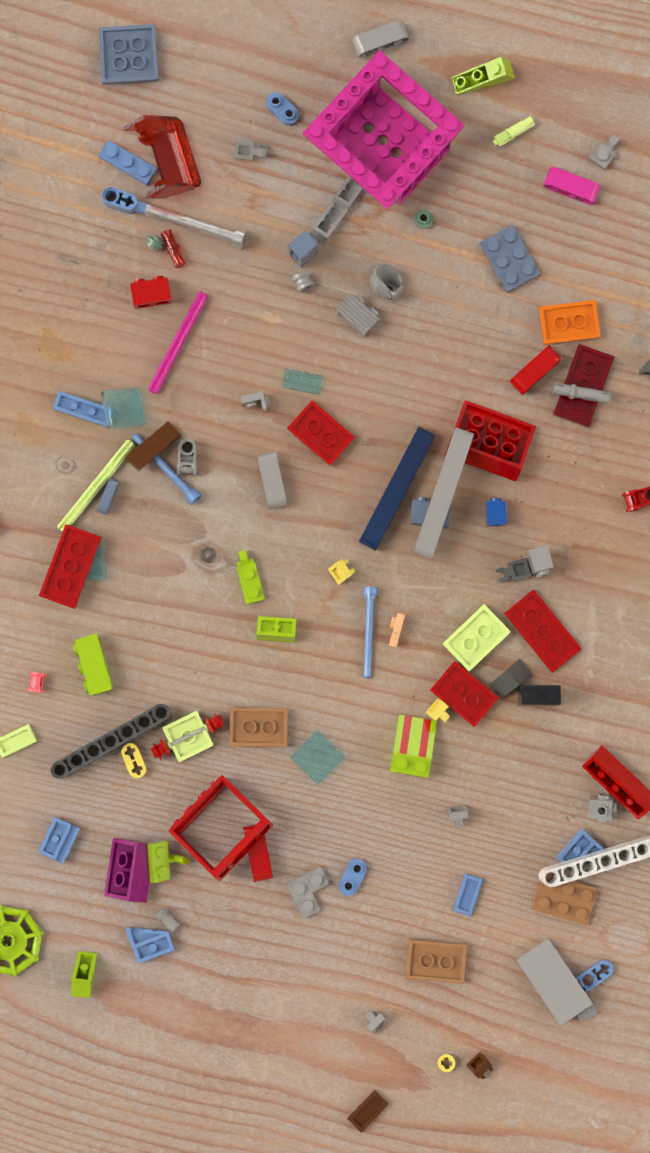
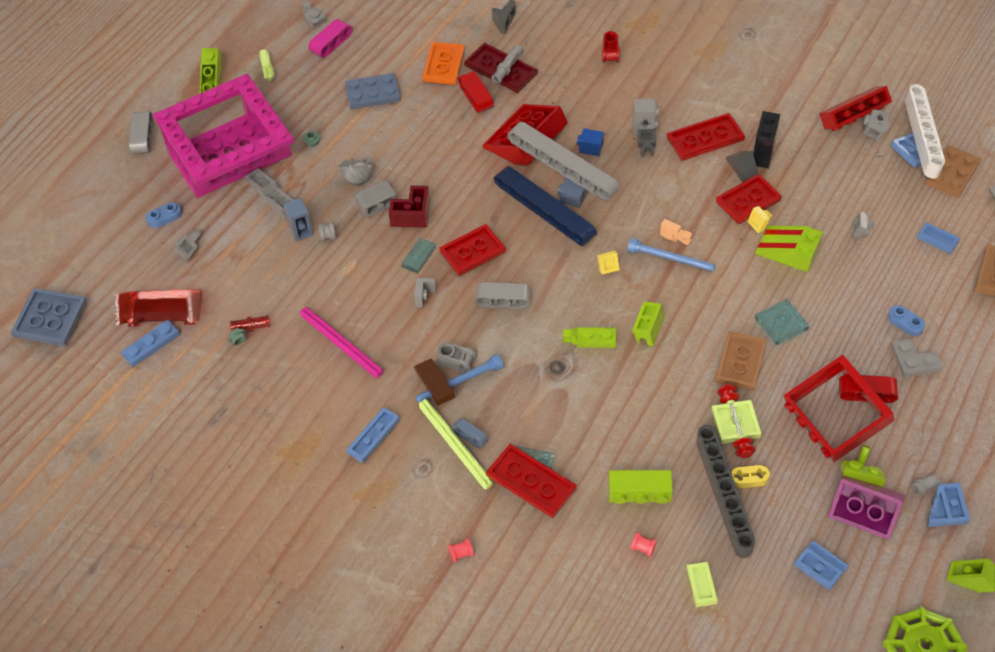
camera: 70 degrees left, 30 degrees down
(123, 408) = (386, 398): clear light blue plate -> none
(150, 292) = (283, 350): red brick -> none
(236, 238) = (188, 349): flat silver piece -> none
(350, 361) = (411, 211): none -> dark red brick
(476, 637) = (699, 179): yellowish green plate -> none

